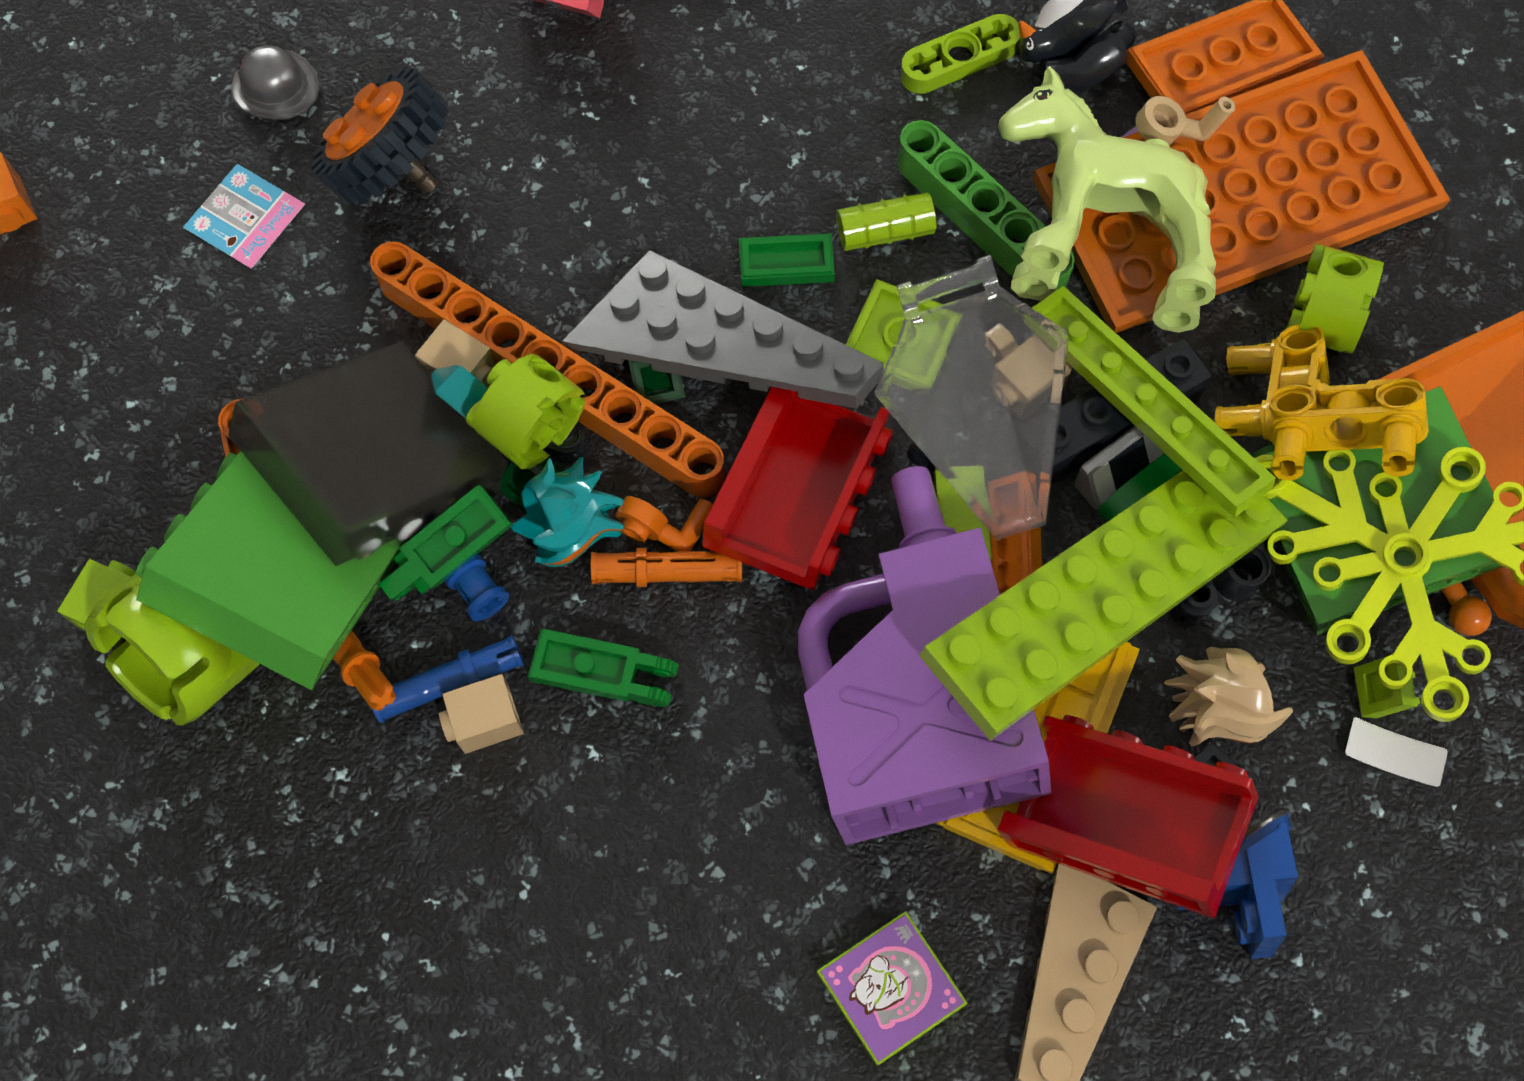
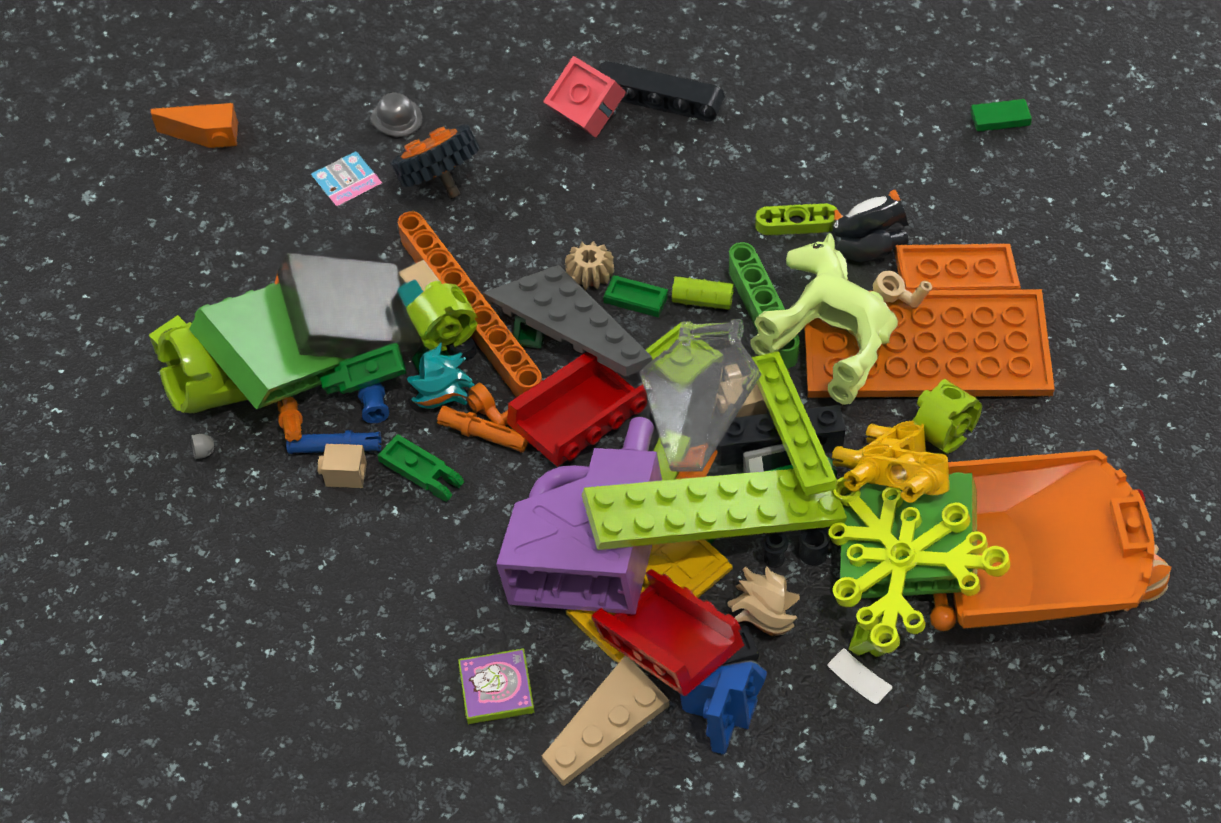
camera: 25 degrees right, 15 degrees down
(235, 765) = (202, 445): none -> light grey hinge
(681, 231) = (590, 265): none -> tan gear

